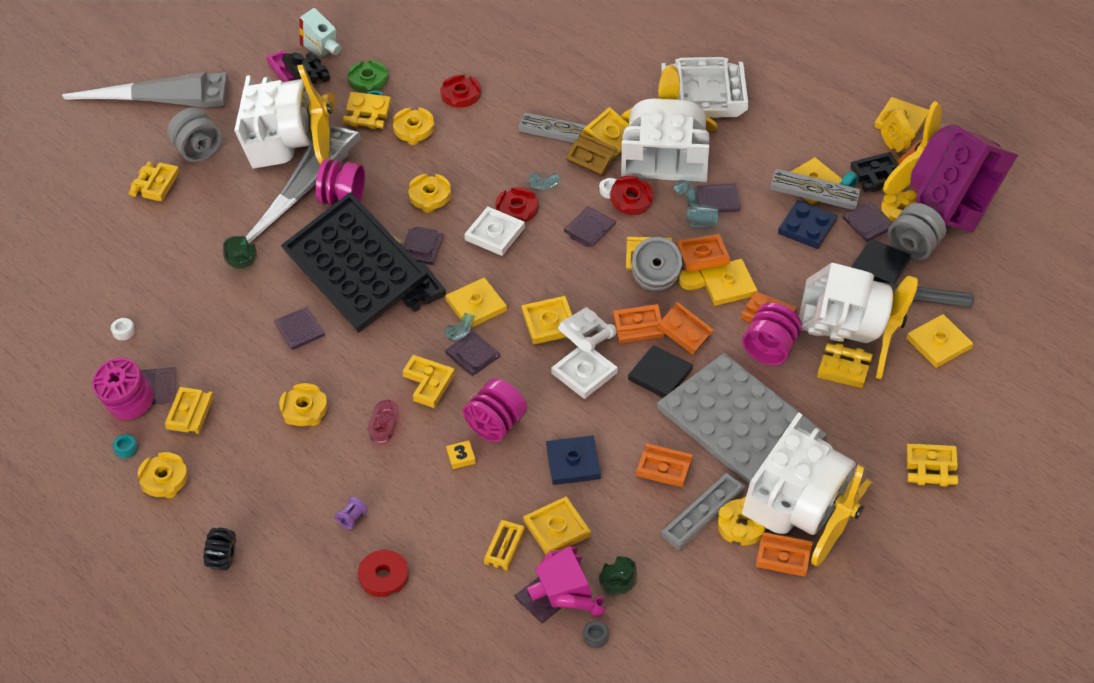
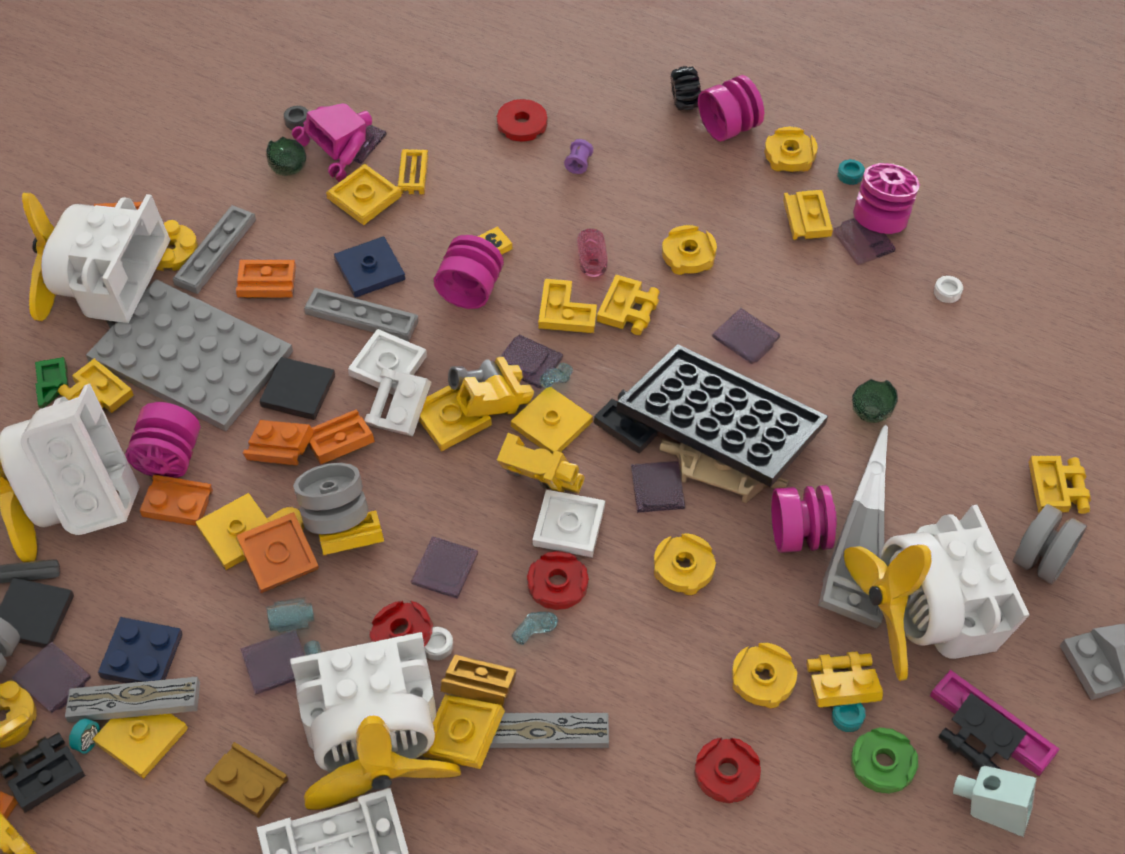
camera: 160 degrees right, 5 degrees up
(193, 508) = (731, 108): none -> dark pink wheel
(380, 376) = (619, 304): none -> yellow plate
(501, 254) = (549, 469): none -> yellow hips
(513, 319) = (489, 389): none -> yellow hips
(593, 420) = (360, 314): none -> light grey tile
(750, 145) = (246, 780): none -> pearl gold plate
(817, 407) = (107, 387): none -> yellow plate
(857, 424) = (50, 377): none -> green slope

